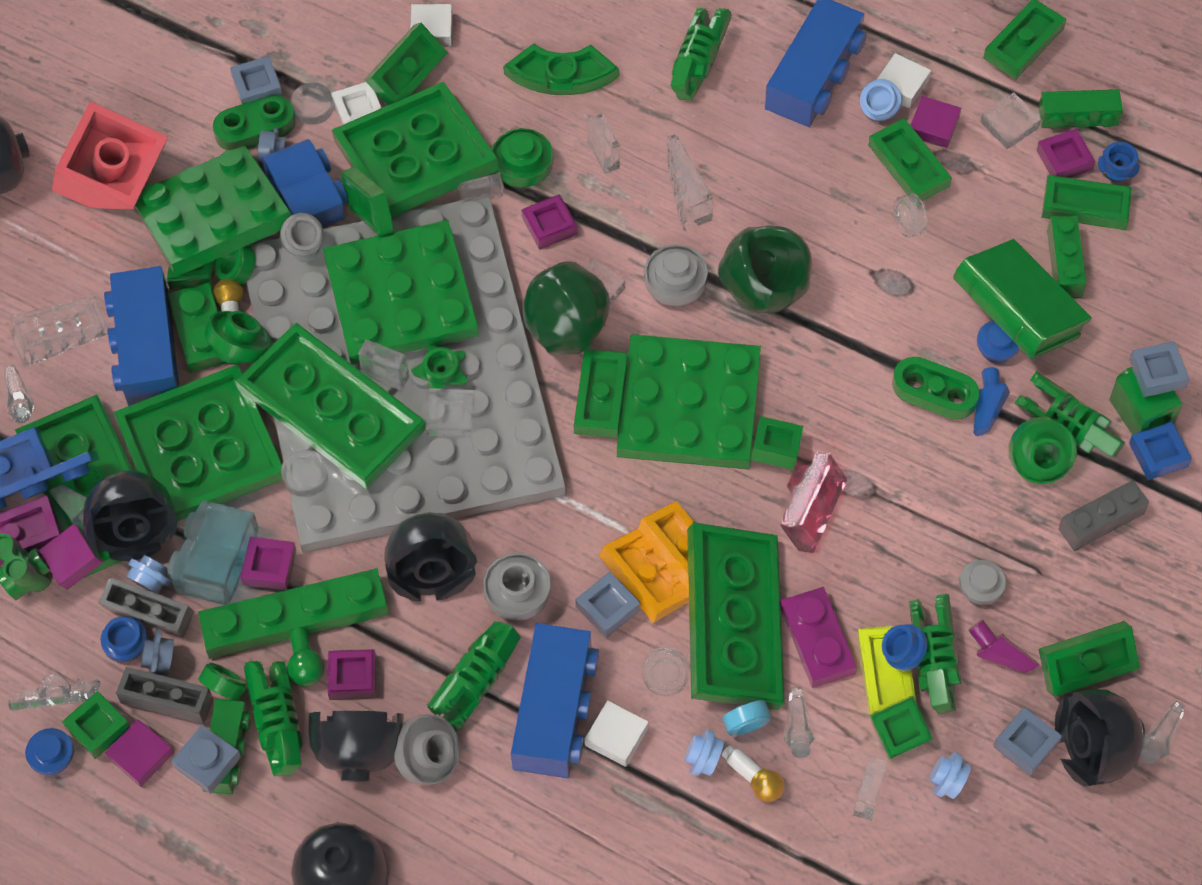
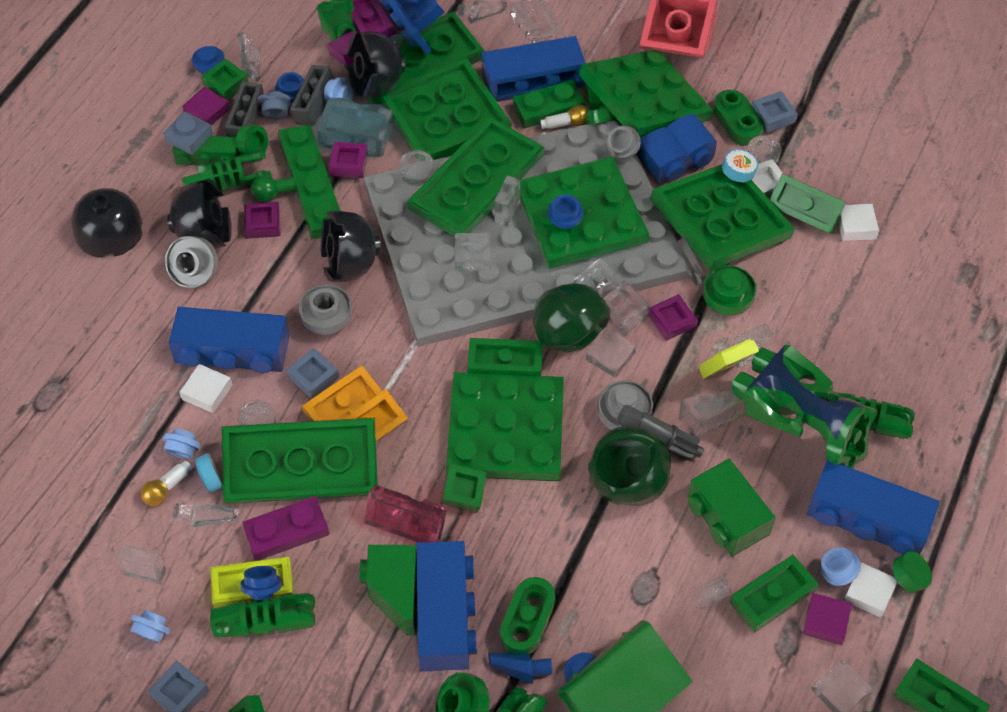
camera: 85 degrees right, 5 degrees down
(236, 337) = (529, 113): green plate -> none
(269, 143) = (716, 124): sand blue plate -> none
(349, 120) = (740, 165): none -> tile
(367, 201) = (656, 176): green tile -> none
(420, 295) = (565, 212): none -> blue plate
(441, 357) = (514, 236): green plate -> none
(474, 674) = (255, 289): green hinge -> none
(542, 246) = (633, 299): none -> clear slope
(561, 72) = (827, 317): green tile -> none
(633, 159) = (728, 358): none -> neon yellow tile
(687, 108) = (780, 392): none -> green hips
(720, 233) = (671, 436): none -> dark grey piece
(810, 186) = (730, 507): none -> green brick
(887, 40) = (912, 572): none -> green tile
(899, 515) = (392, 582): none -> green slope
(900, 727) = (196, 588): green tile -> none
(925, 467) = (444, 606): none -> blue brick
(982, 582) = (333, 656): light grey plate -> none
(1001, 649) = (270, 670): magenta bar -> none

